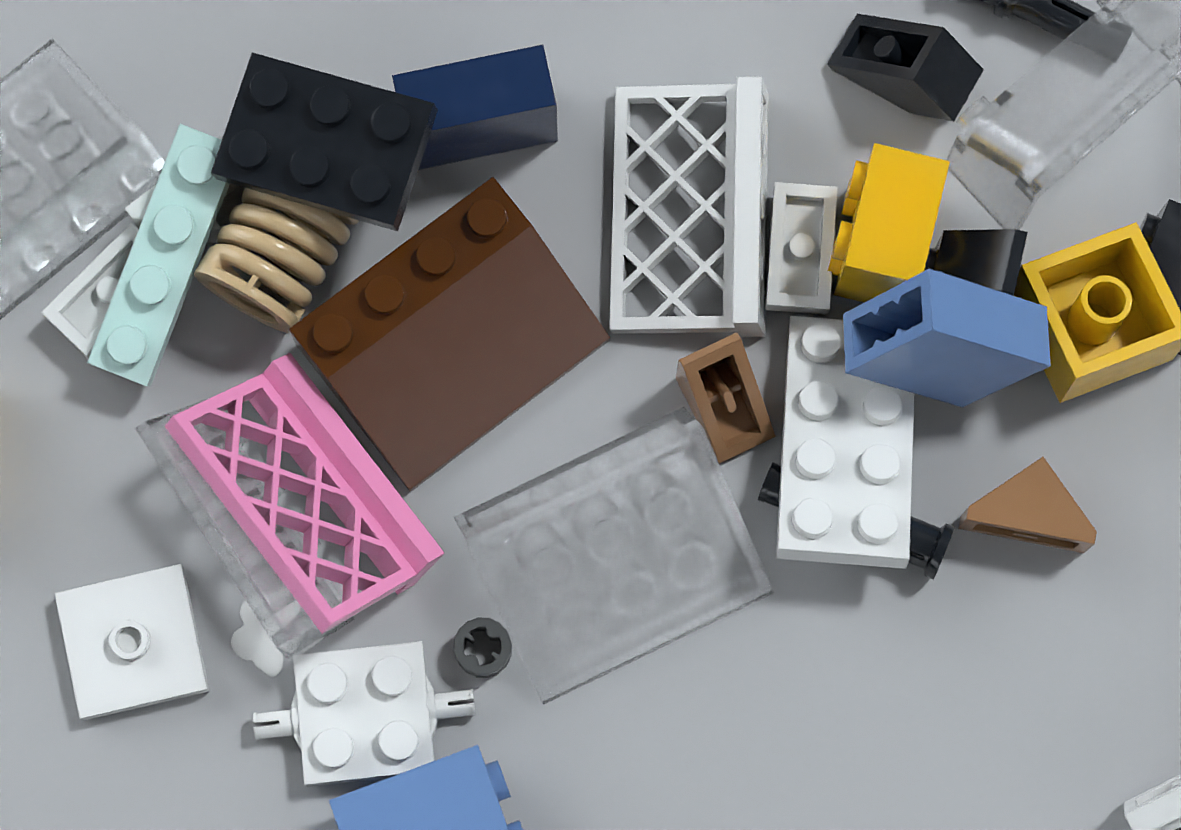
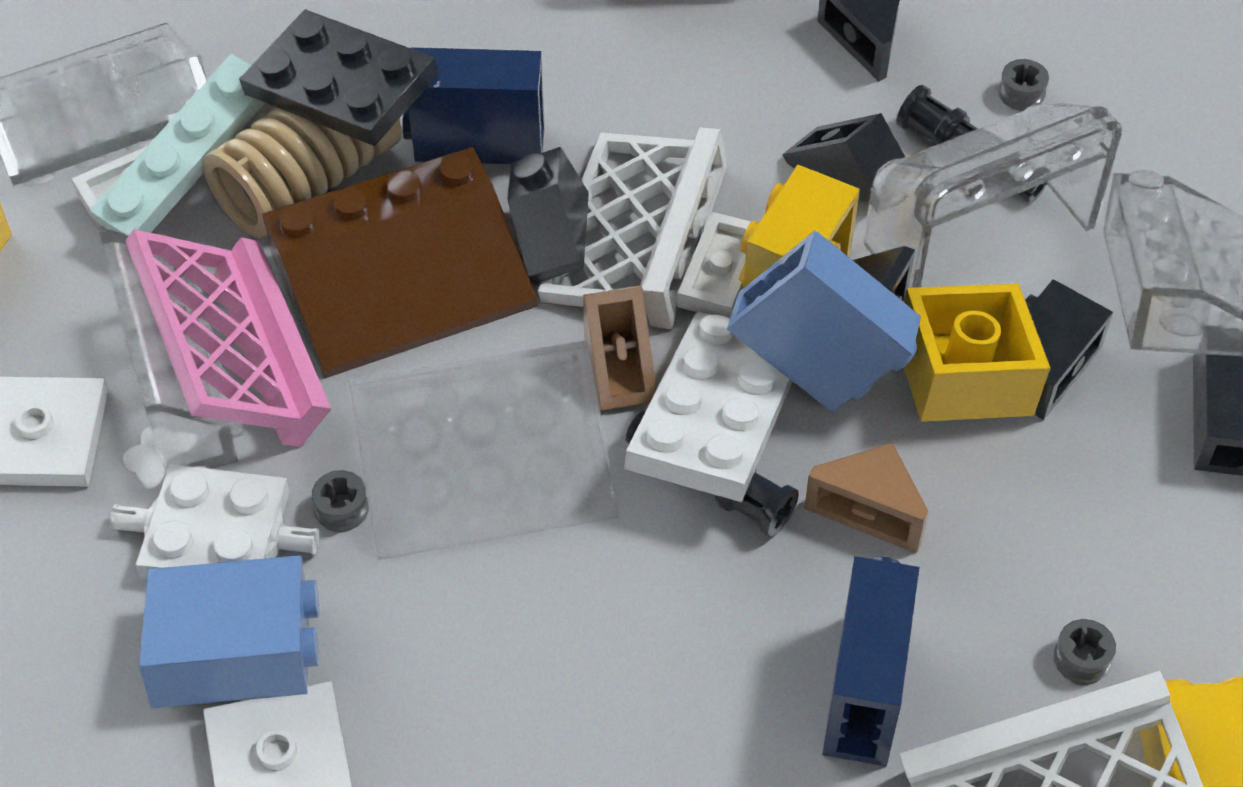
camera: 15 degrees right, 25 degrees down
(600, 237) = (548, 213): none -> black slope
(1076, 717) = (871, 660): none -> dark blue brick

